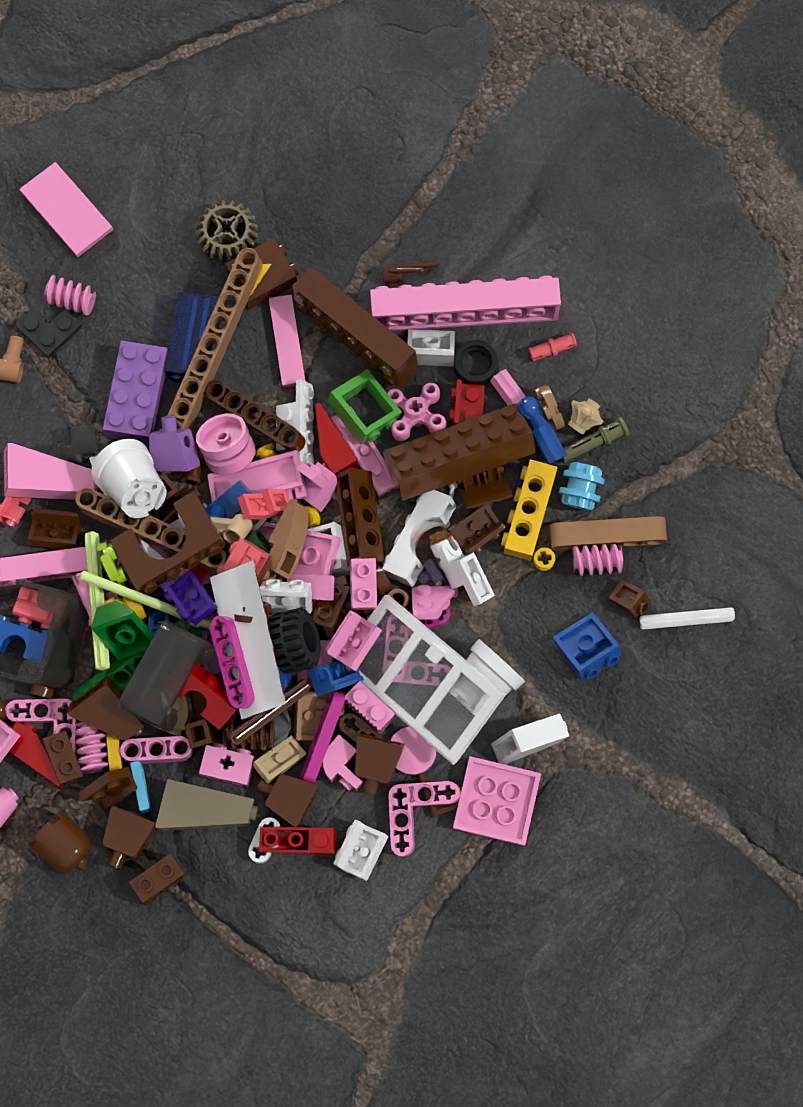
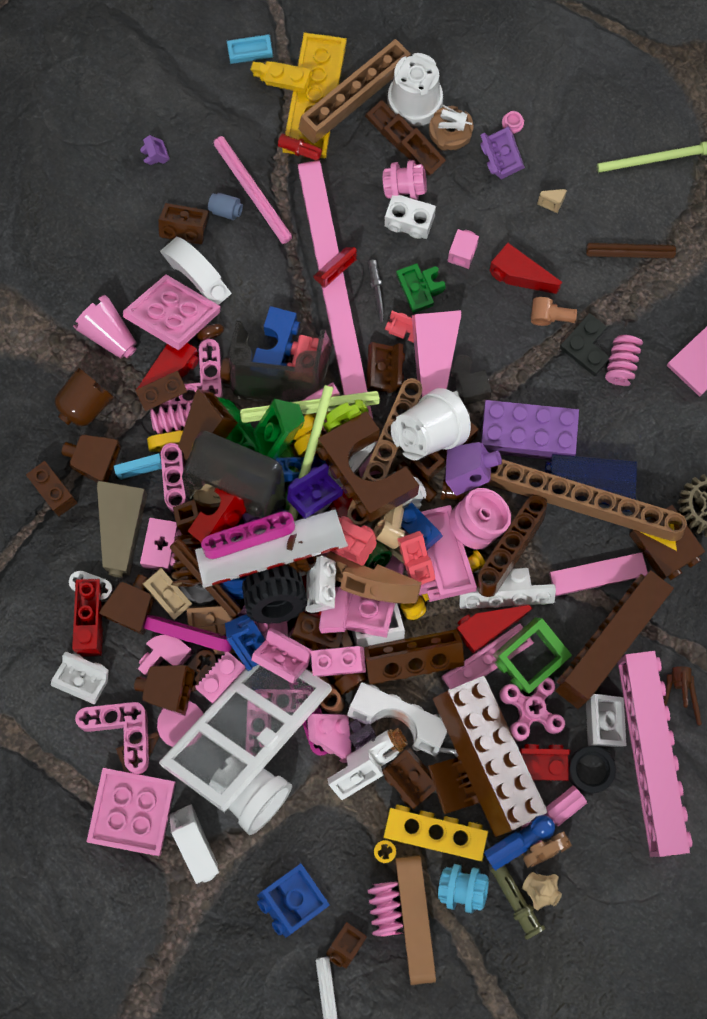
camera: 90 degrees right, 0 degrees up
(110, 788) = (135, 440): reddish brown bracket -> none
(319, 484) = (444, 613): bright pink brick -> none
(552, 347) = (617, 852): coral pin -> none

